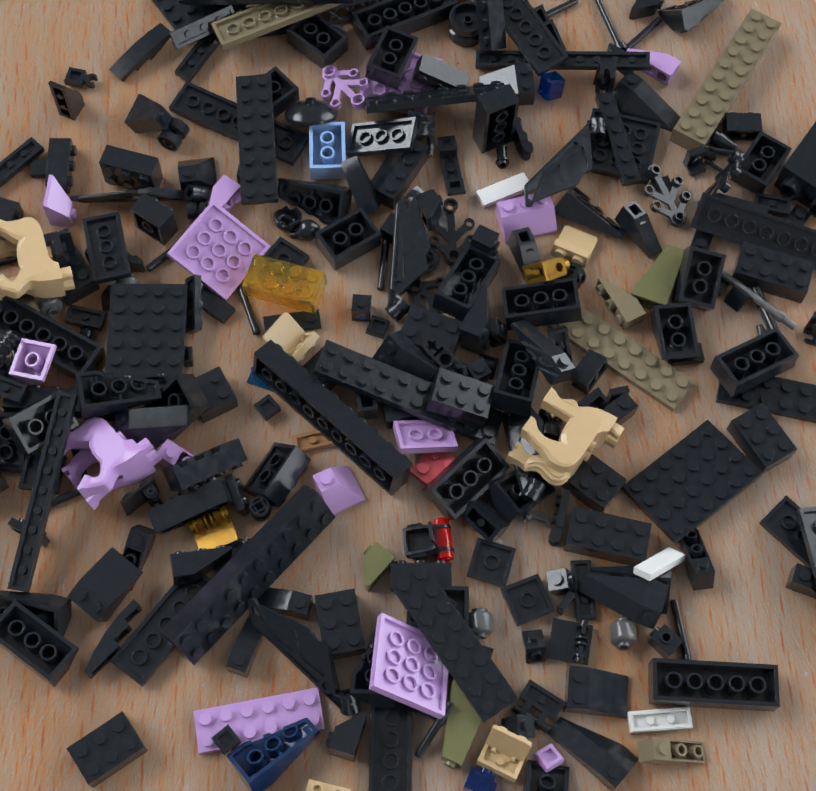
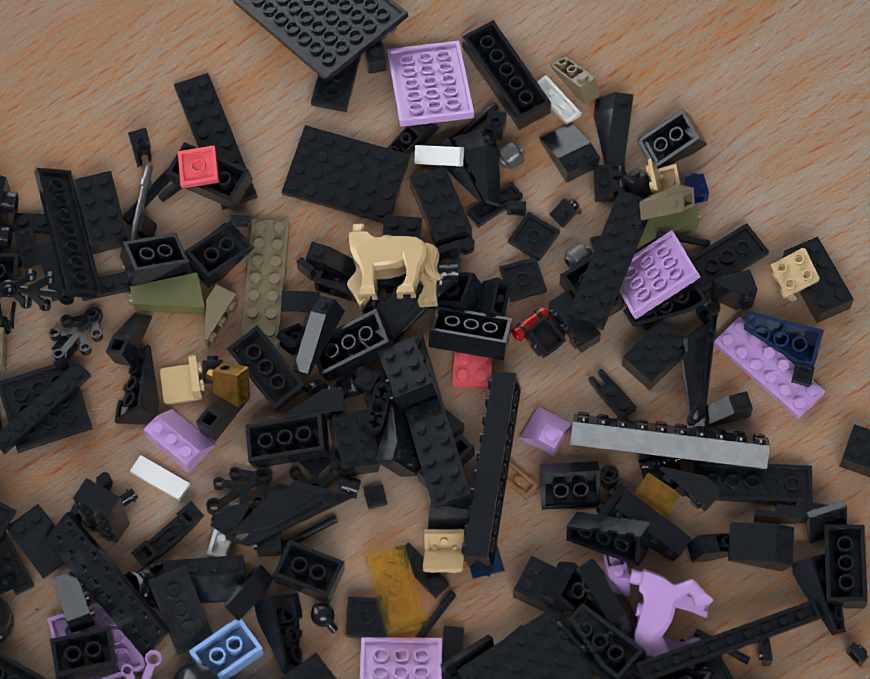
camera: 120 degrees left, 0 degrees up
(80, 663) = (831, 514): none -> black plate
(145, 493) = (671, 571): black hinge -> none
(267, 407) = (517, 533): black plate -> none
(287, 219) = (323, 640): black hair -> none
(287, 602) = (667, 402): black slope -> none
(331, 565) = (613, 395): none -> black hinge
(361, 307) = (369, 517): black brick -> none
(376, 564) = (589, 360): olive slope -> none
(423, 437) = (458, 388): lavender plate -> none
(474, 732) = (669, 201): none -> dark tan slope
(486, 240) = (237, 450): black brick -> none
(548, 757) = (641, 154): lavender tile -> none
(551, 86) = (17, 498): clear blue brick -> none
(560, 581) = (503, 217): brick -> none
(567, 165) = (105, 427): black wing -> none
(570, 641) = (543, 190): black hinge -> none
(694, 161) = (23, 331): black bracket -> none
(696, 365) = (241, 220): none -> black plate
(741, 602) = (430, 83): none -> lavender plate
(761, 438) = (272, 143): black brick -> none
(764, 347) = (198, 167): none -> coral plate

